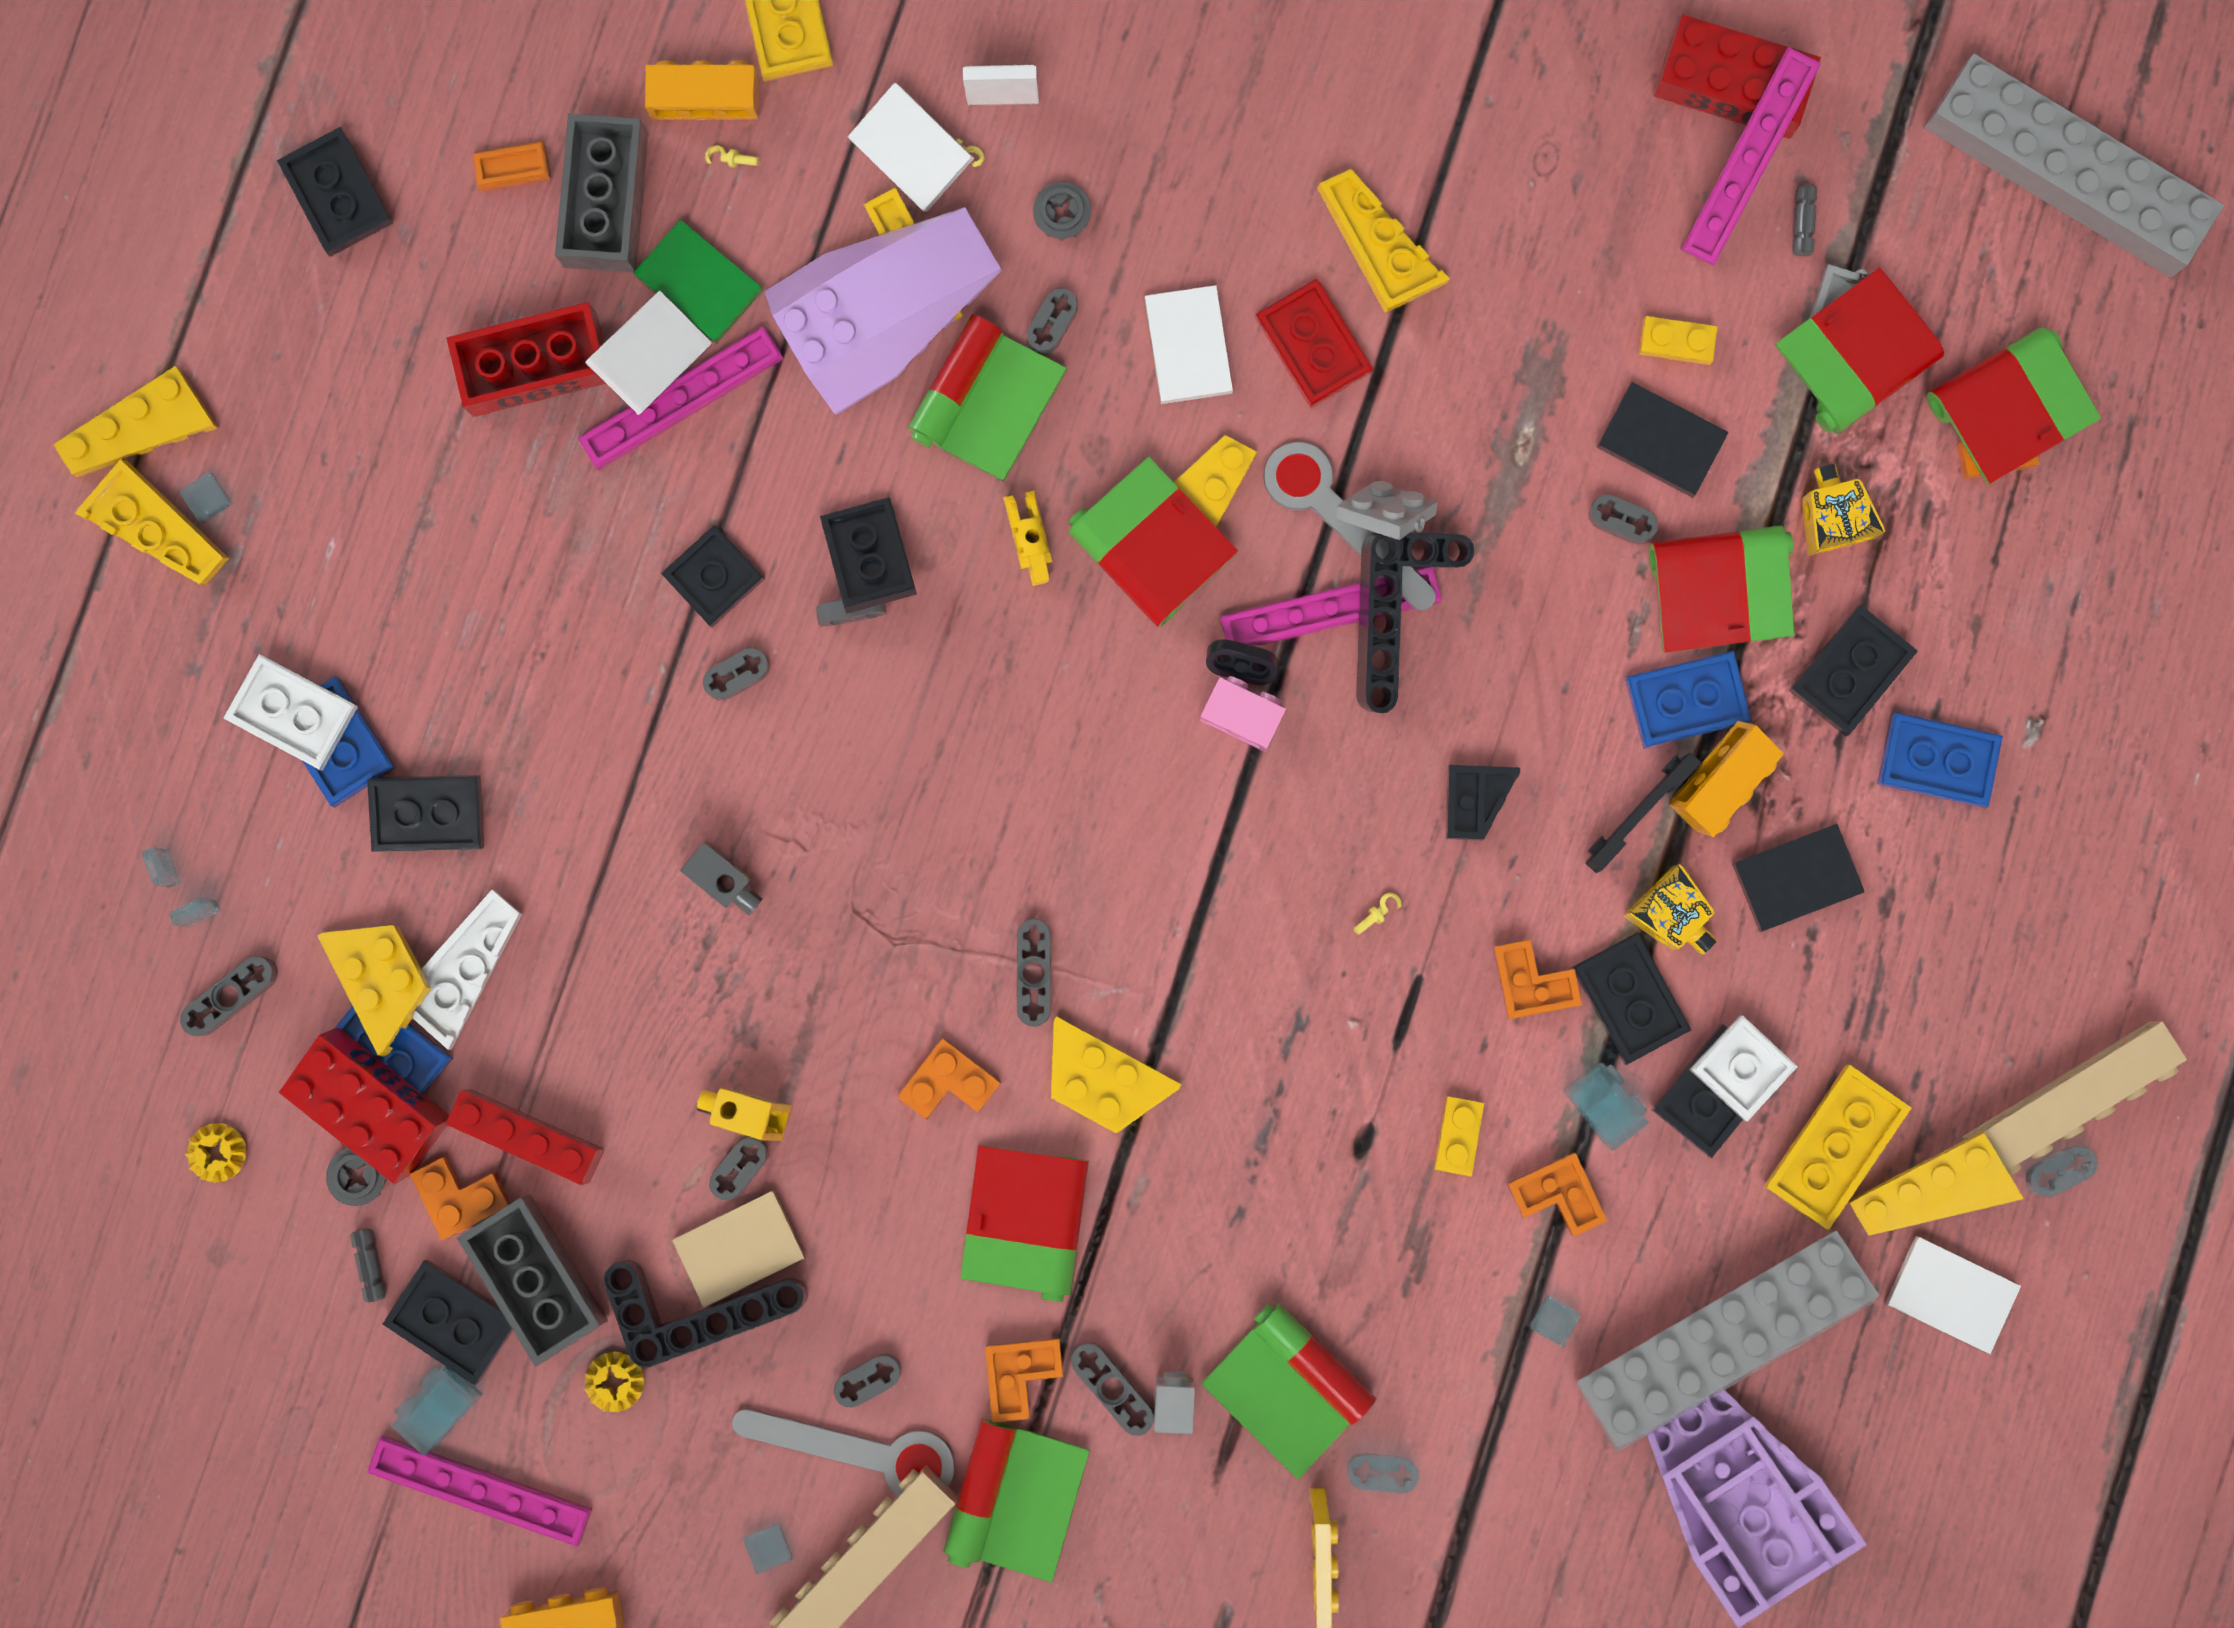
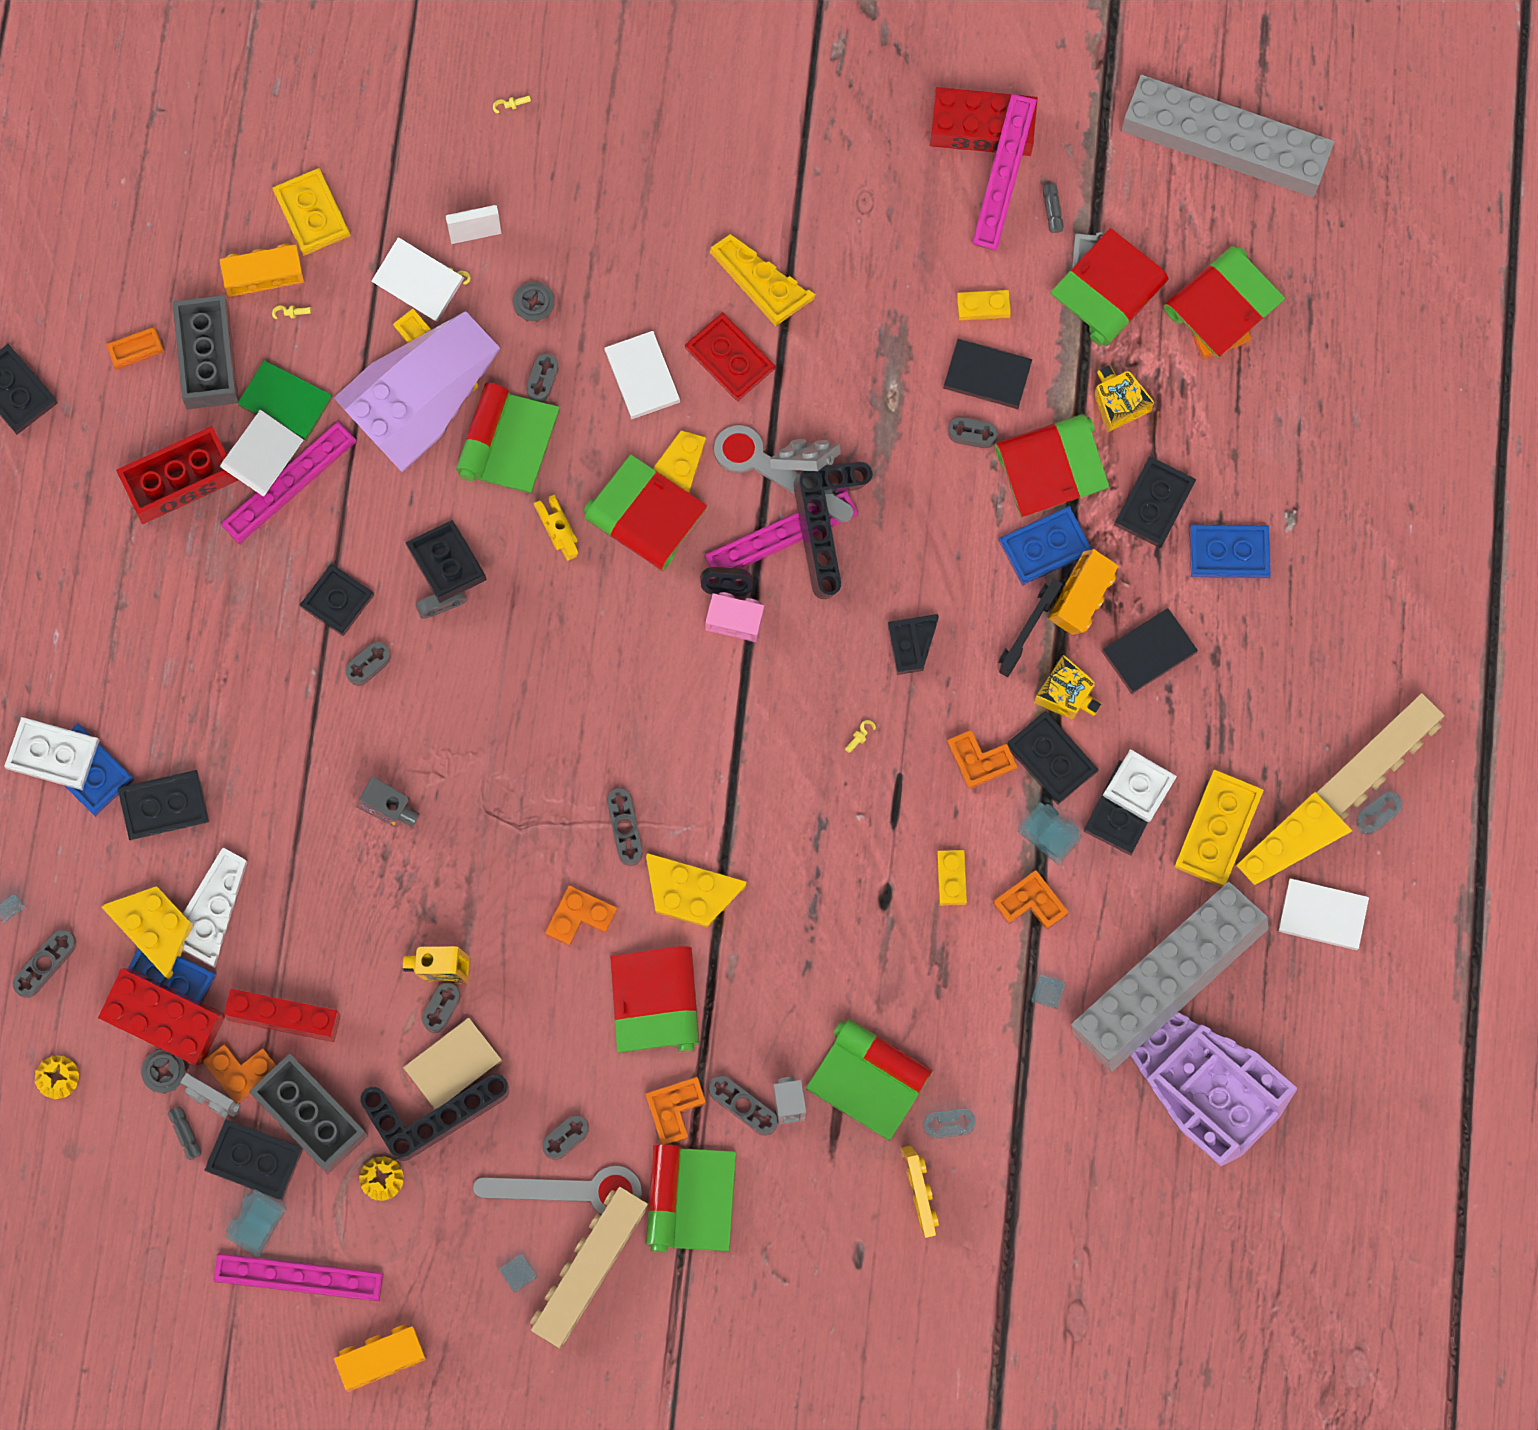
camera: 20 degrees left, 10 degrees down
(412, 1234) = (217, 1102): none -> light grey plate

